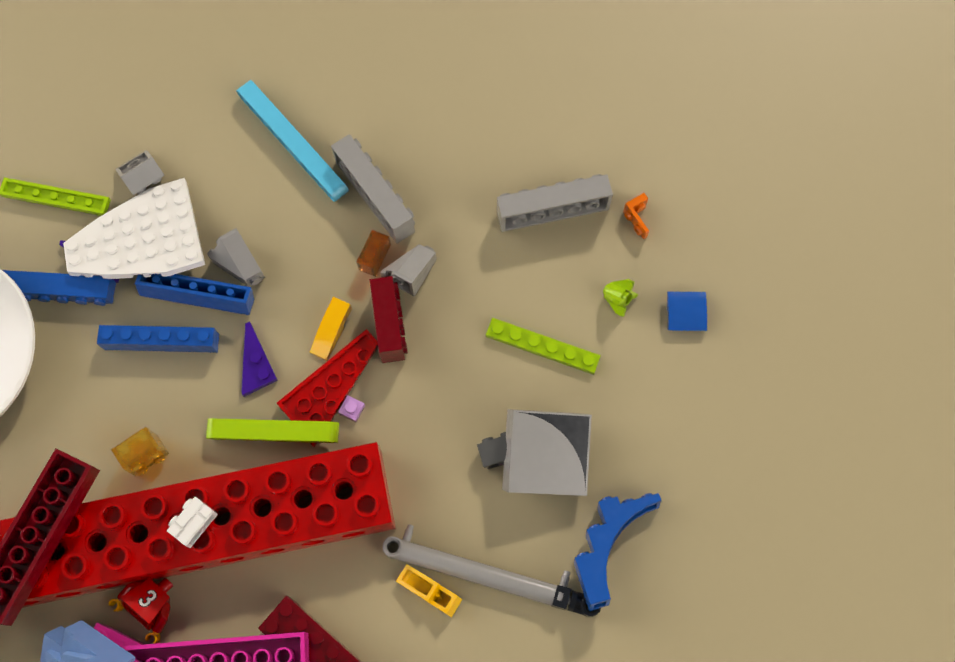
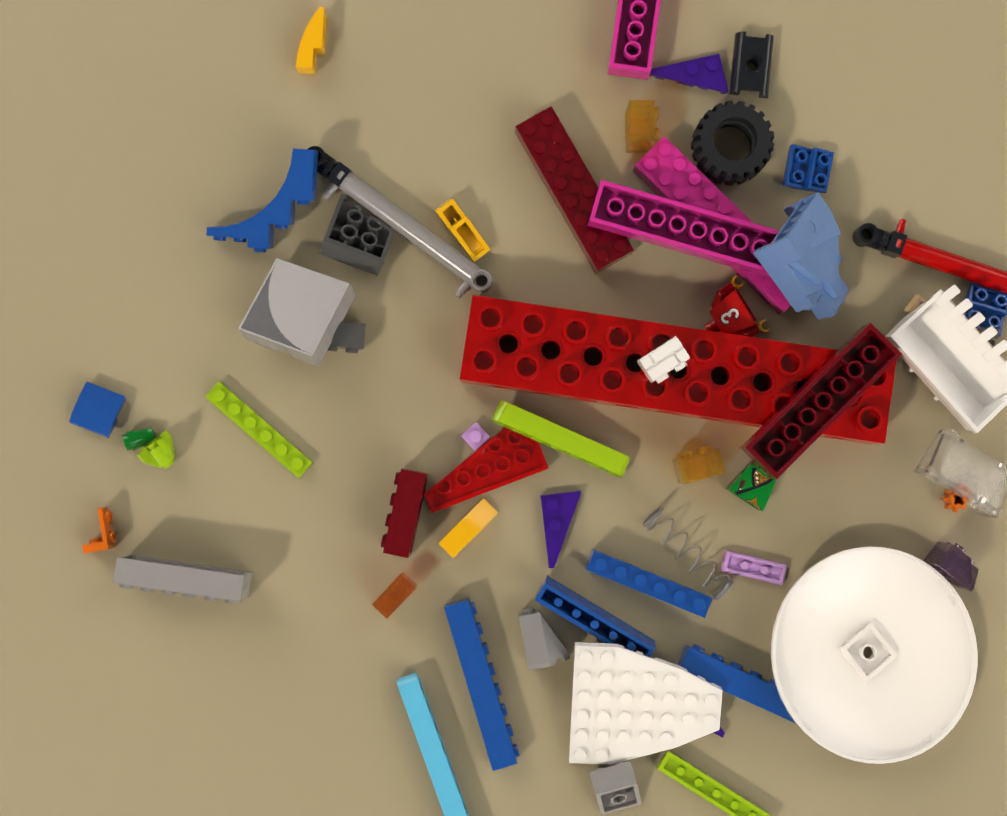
camera: 165 degrees left, 15 degrees up
(69, 386) = (754, 567): none -> lavender tile
(89, 450) = (752, 486): none -> green torso
(170, 386) = (726, 586): none -> light grey piece
(278, 212) = (481, 685): none -> blue brick
(373, 188) = (369, 669): light grey brick -> none
(411, 268) = (362, 562): light grey slope -> none
(522, 544) = (356, 238): none -> dark grey wedge
(642, 300) = (137, 438): none -> green cone

